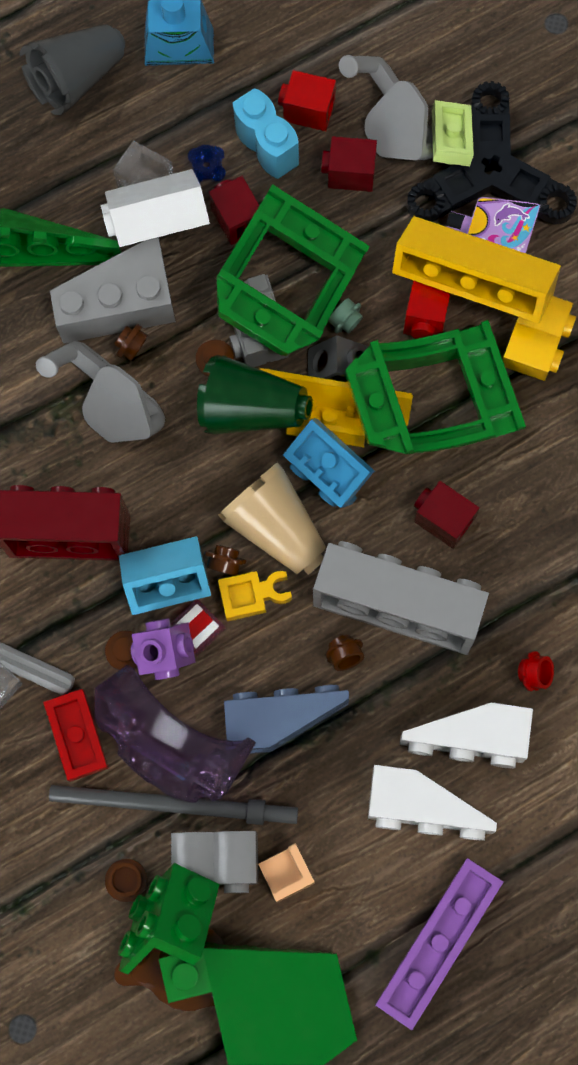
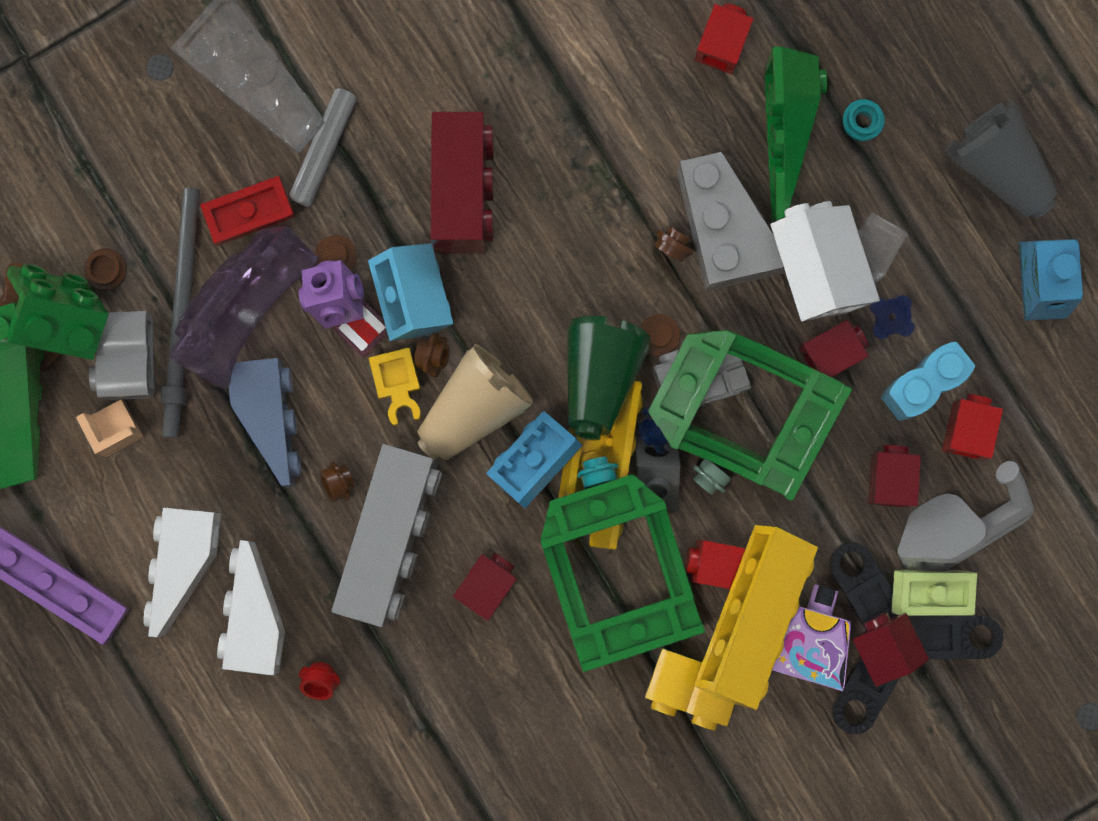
camera: 85 degrees right, 10 degrees up
(24, 173) = (870, 110): none -> teal plate
(115, 401) = (605, 231): light grey piece -> none
(303, 359) = (651, 433): none -> clear blue plate
(342, 406) = (597, 472): none -> teal plate
(503, 161) = (890, 648): none -> dark red brick

